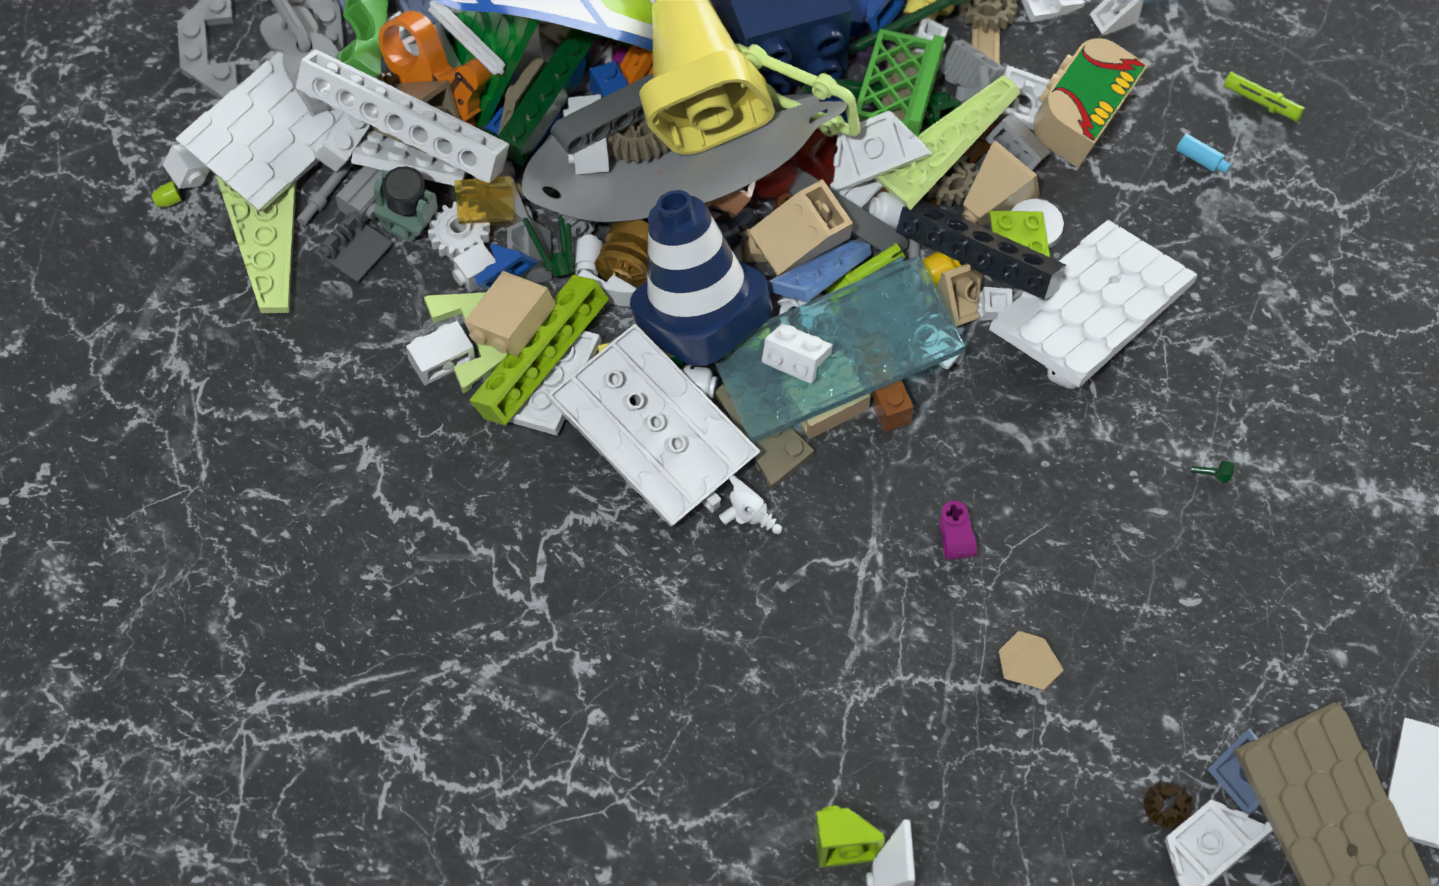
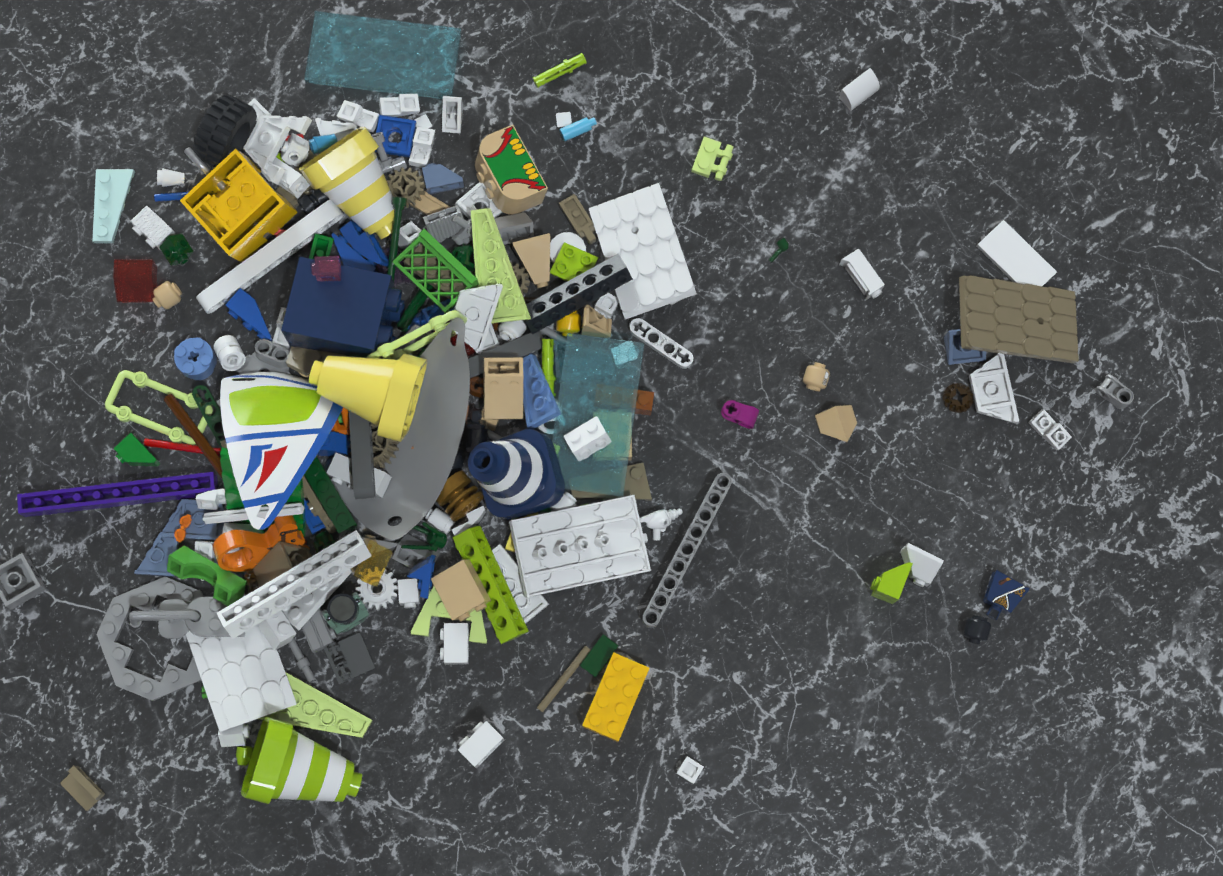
camera: 65 degrees left, 15 degrees up
(36, 52) = (82, 788): none -> dark tan panel
(175, 237) = (296, 768): none -> lime cone
(323, 440) = (480, 744): none -> white brick
(433, 715) = (690, 770): none -> white plate
(469, 503) = (563, 679): none -> dark tan bar
(478, 572) = (615, 697): none -> yellow brick
(524, 529) = (599, 656): none -> dark green tile
(742, 552) = (690, 541): none -> light grey beam
(990, 393) = (659, 345): none -> white beam
(1025, 38) = (440, 179): none -> sand blue slope
(1070, 601) = (816, 377): none -> tan head
(1086, 214) = (578, 218): none -> dark tan hinge
(1206, 135) = (563, 119): none -> white sticker
(1254, 588) = (863, 274): none -> white window
(1279, 321) = (706, 158): none -> yellowish green plate

